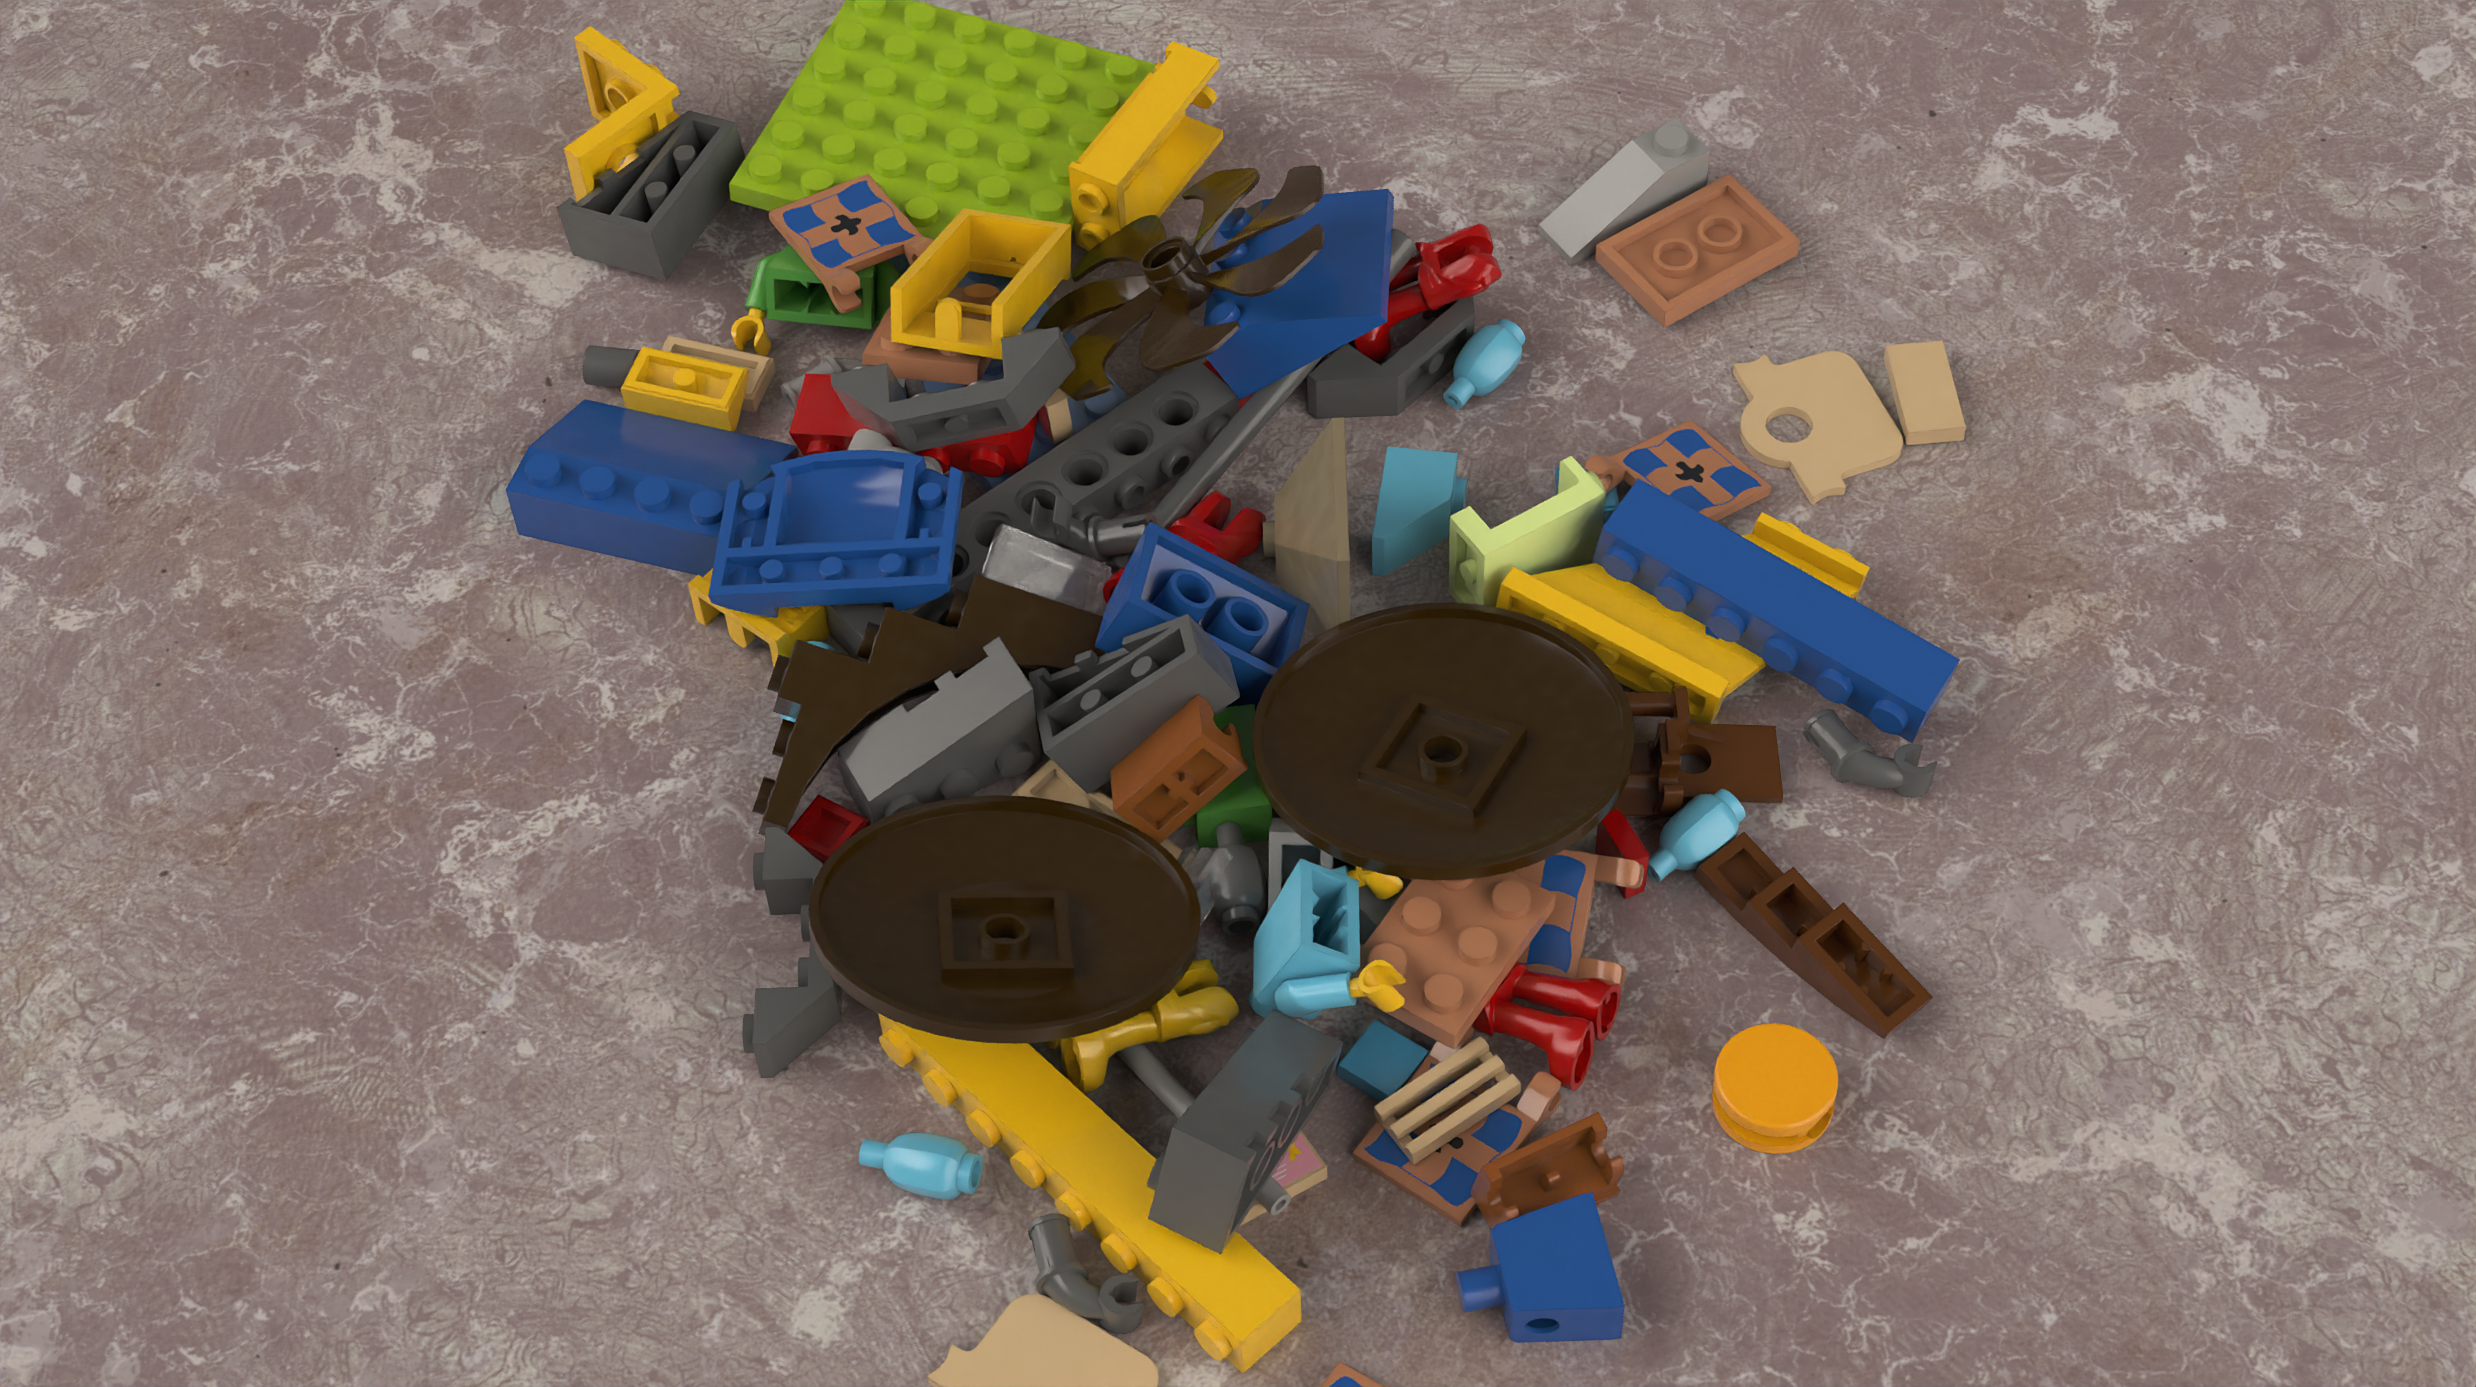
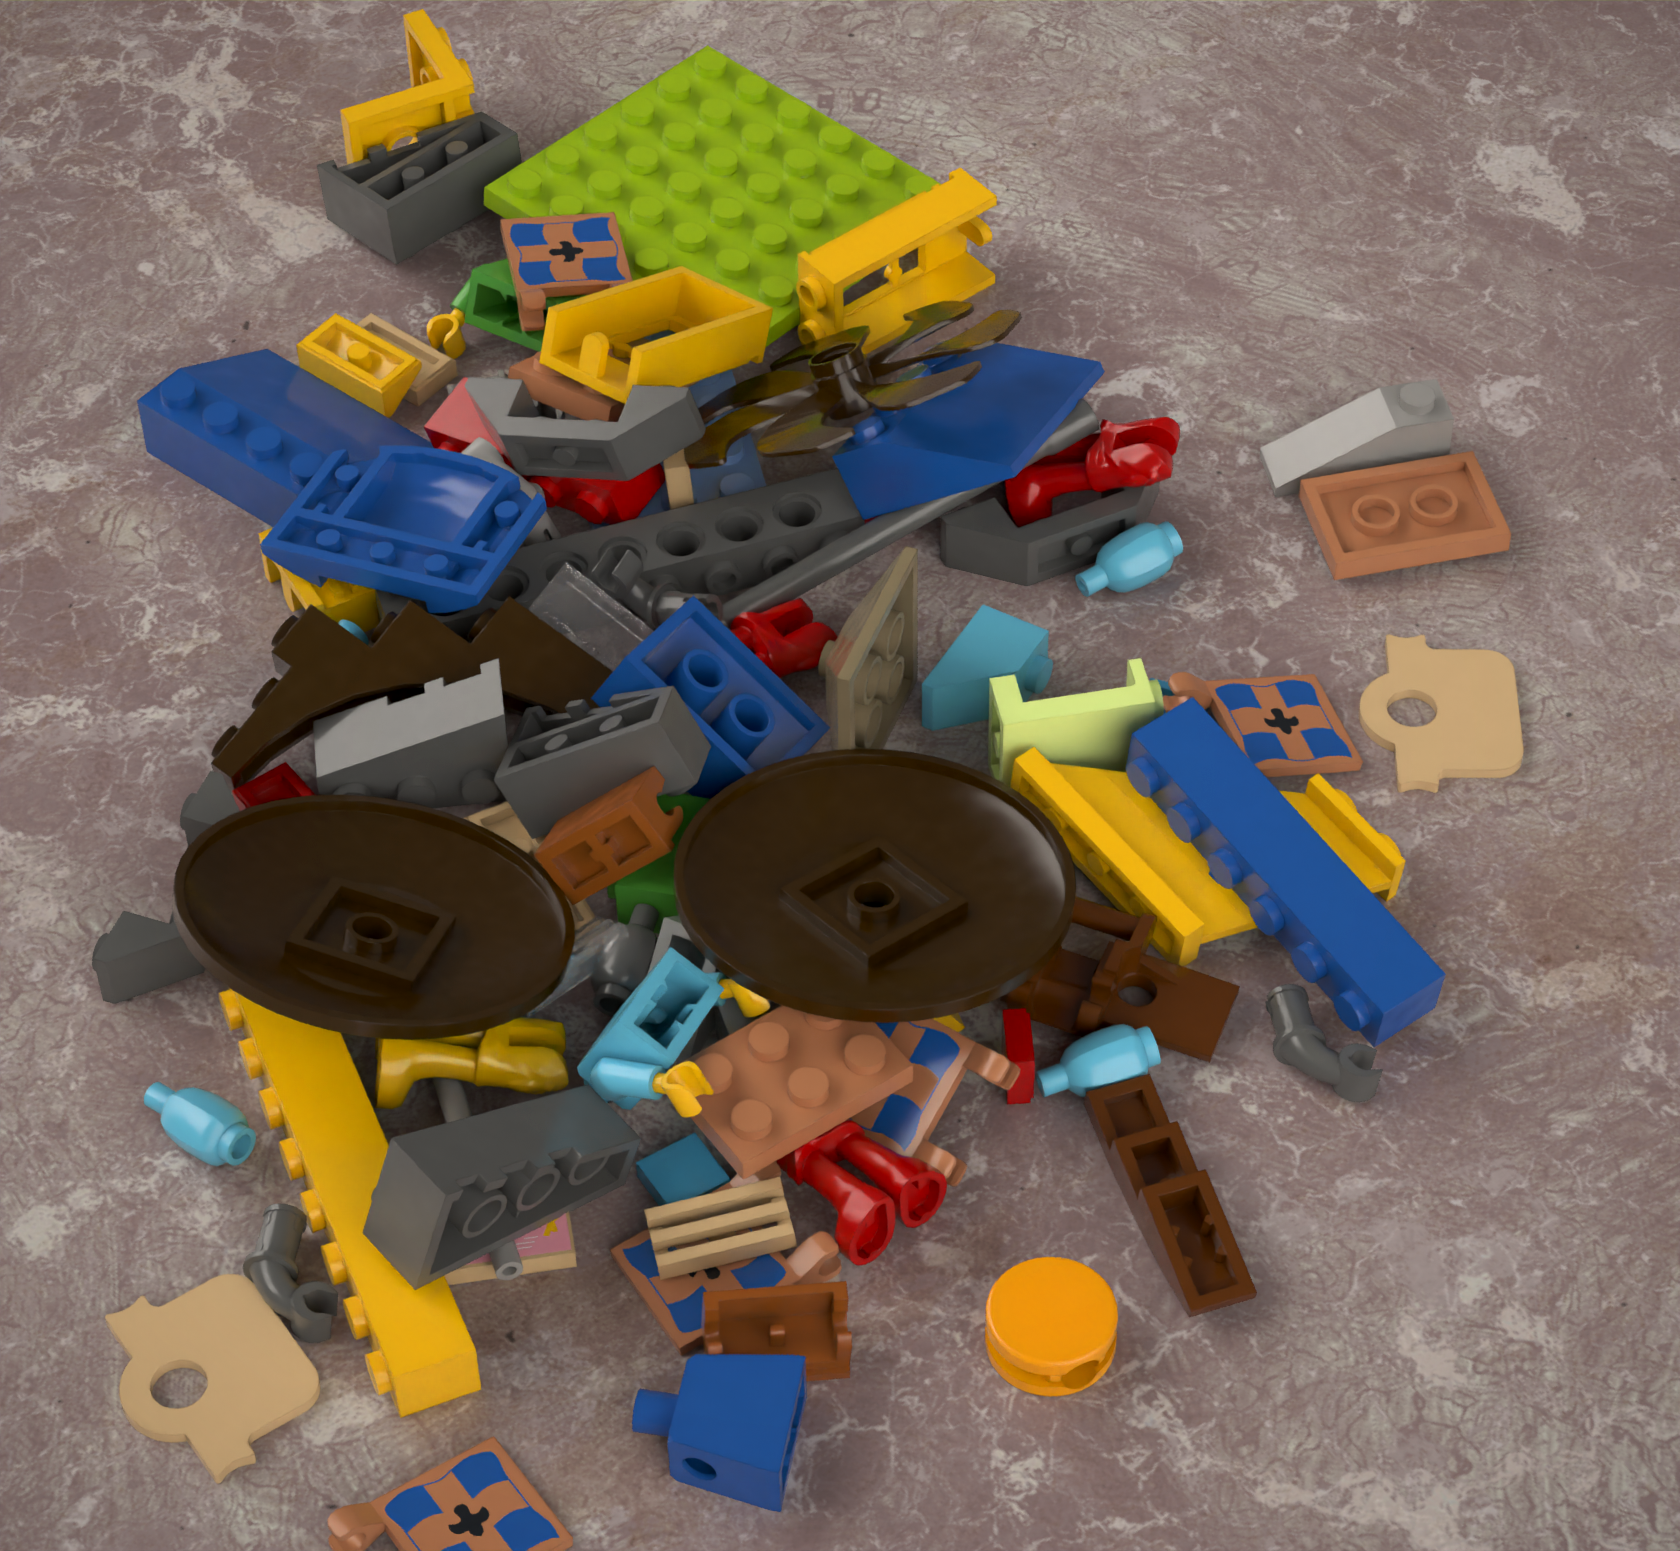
camera: 20 degrees right, 5 degrees down
(607, 365) = (297, 321): dark grey hinge -> none
(1924, 393) = (1568, 718): tan tile -> none

